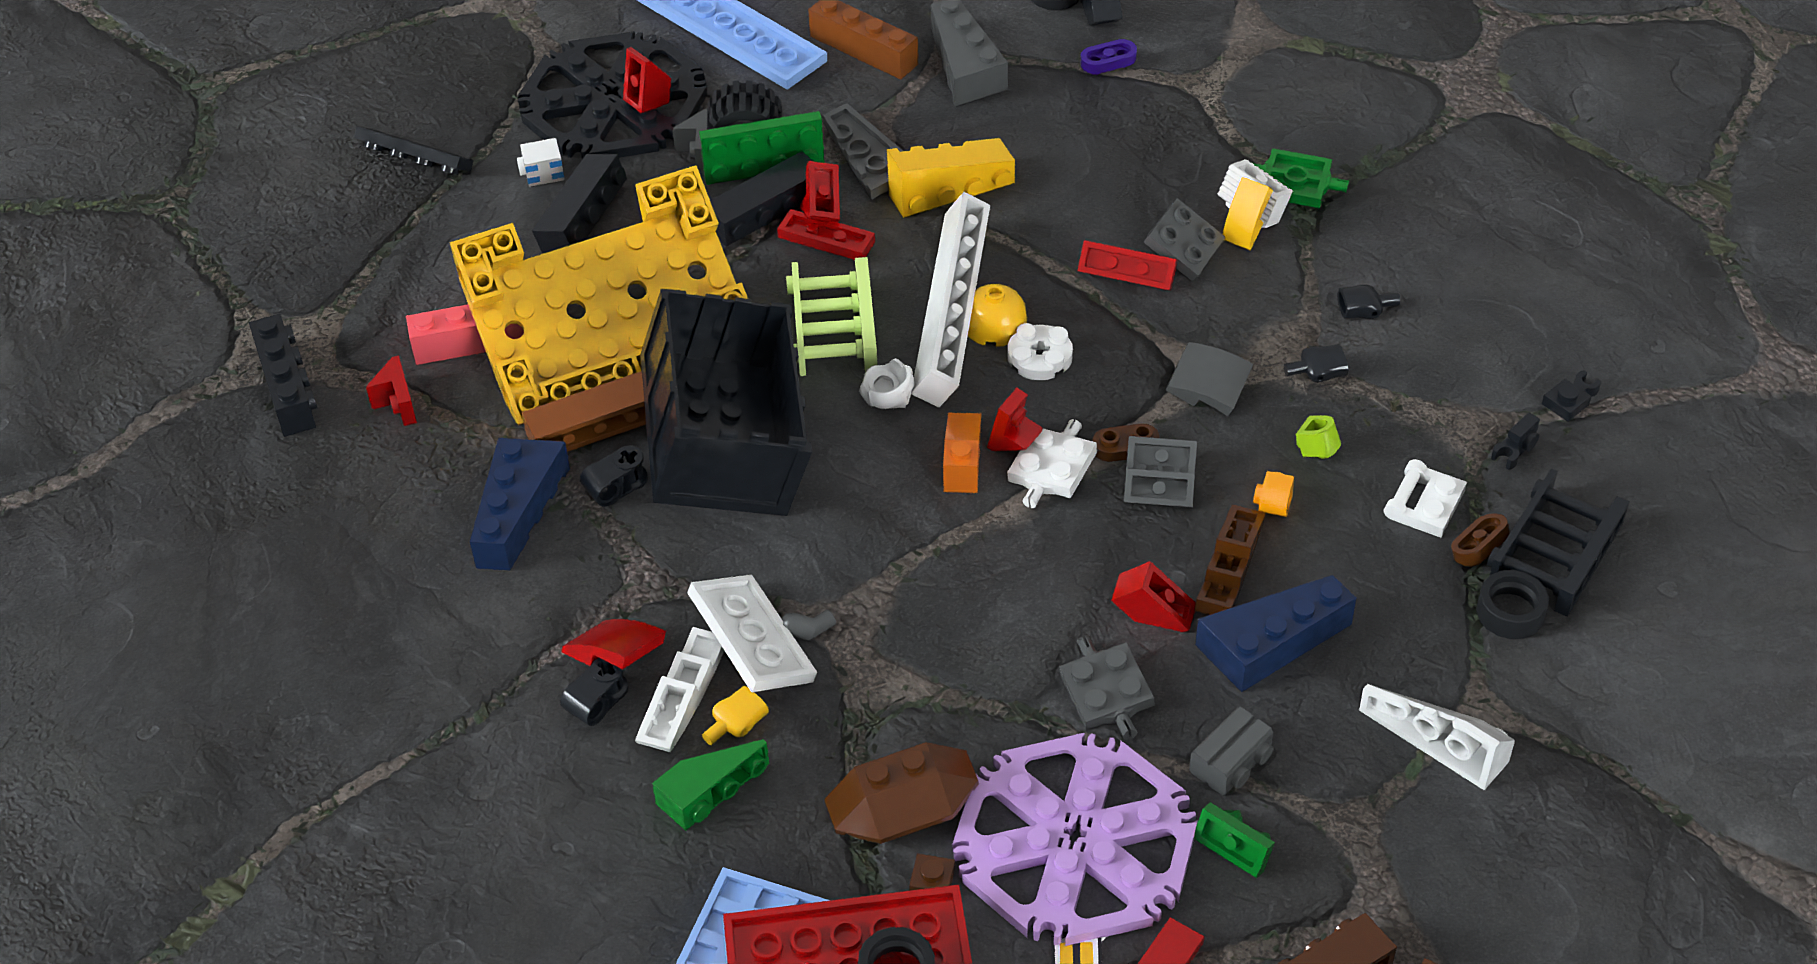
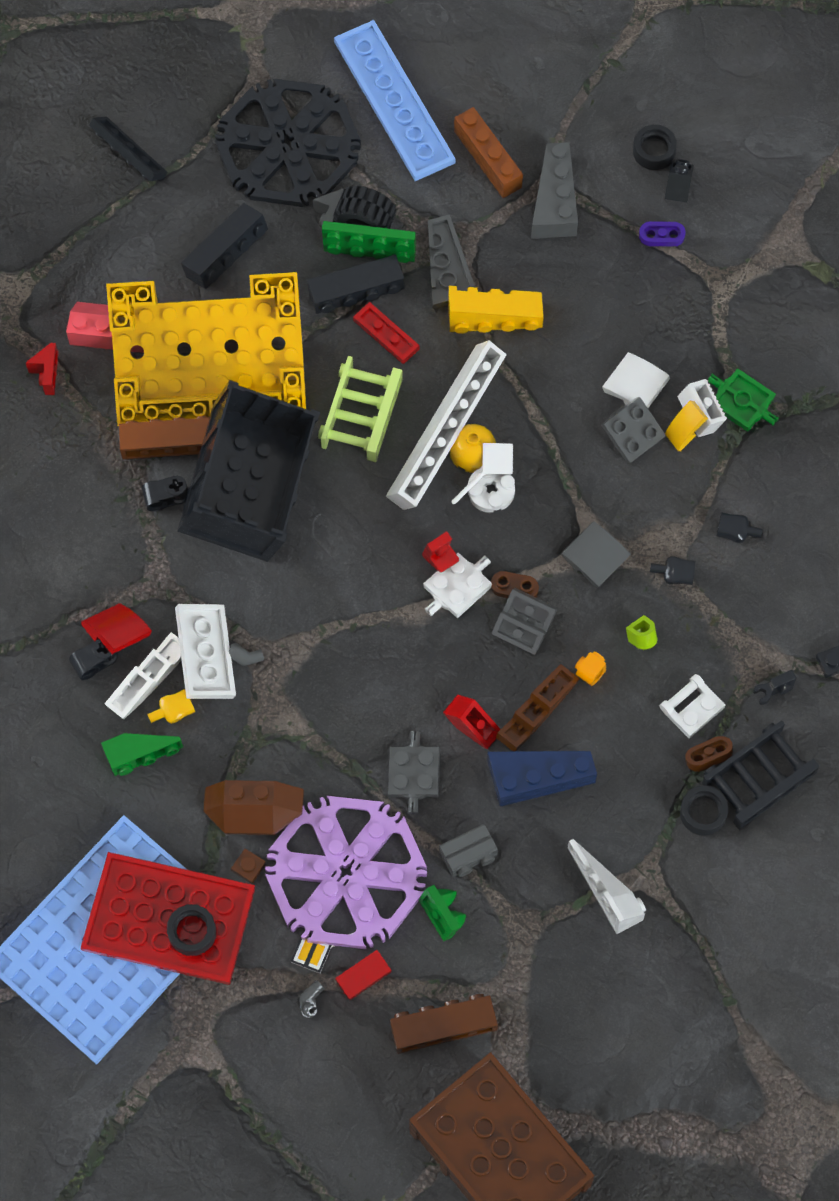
camera: 20 degrees right, 20 degrees up
(513, 499) = (93, 488): dark blue wedge -> none
(541, 162) = (212, 194): white brick -> none
(644, 83) = (308, 151): red slope -> none
(822, 192) = (394, 299): red slope -> none
(888, 385) = (372, 484): white hair -> none
(962, 452) = (401, 553): orange slope -> none
(1034, 312) = (496, 460): none -> white piece
(1127, 265) = (583, 437): red plate -> none
(1154, 192) = (635, 379): none -> white slope

